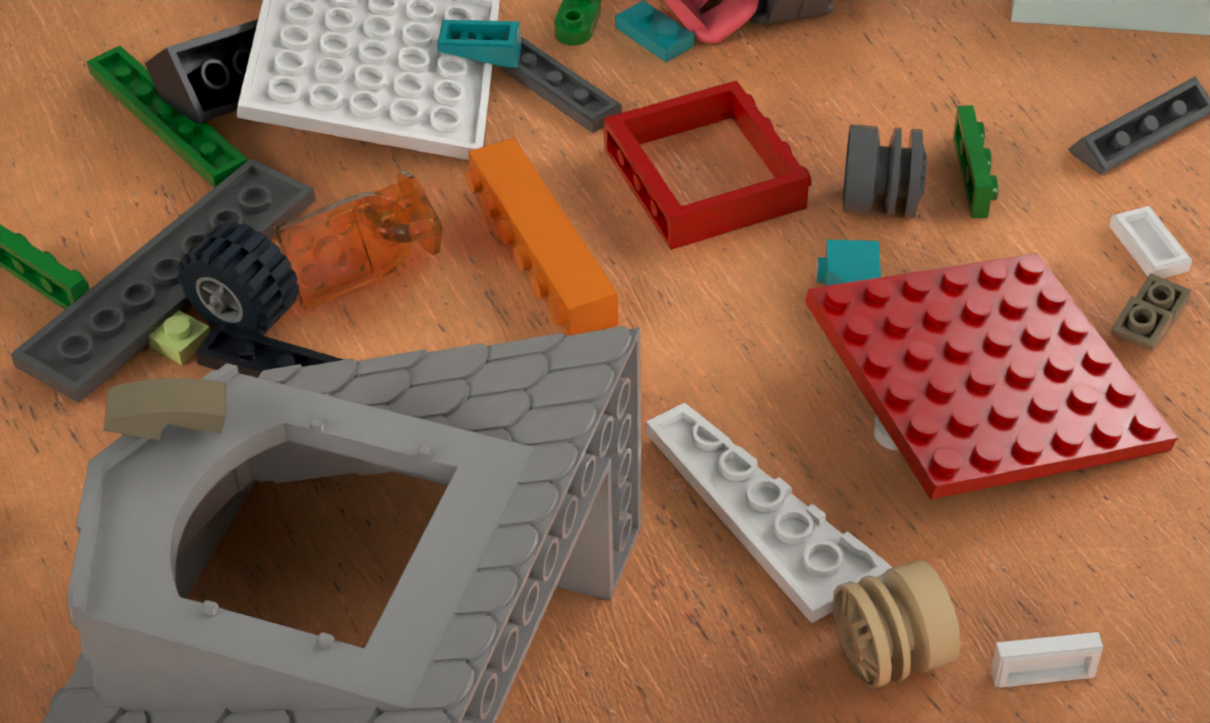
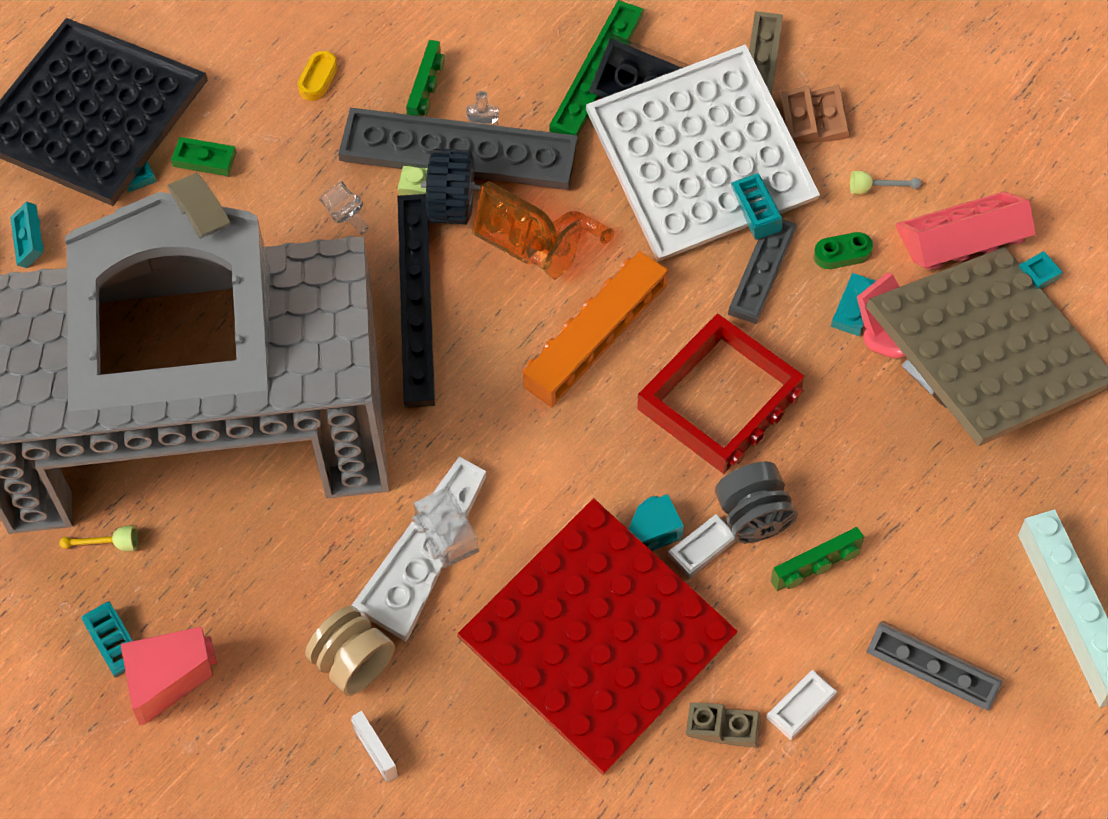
camera: 65 degrees right, 15 degrees up
(145, 223) = (482, 112): none -> clear piece
(759, 456) = (446, 527): none -> clear brick
(897, 245) = (702, 546): none -> white tile

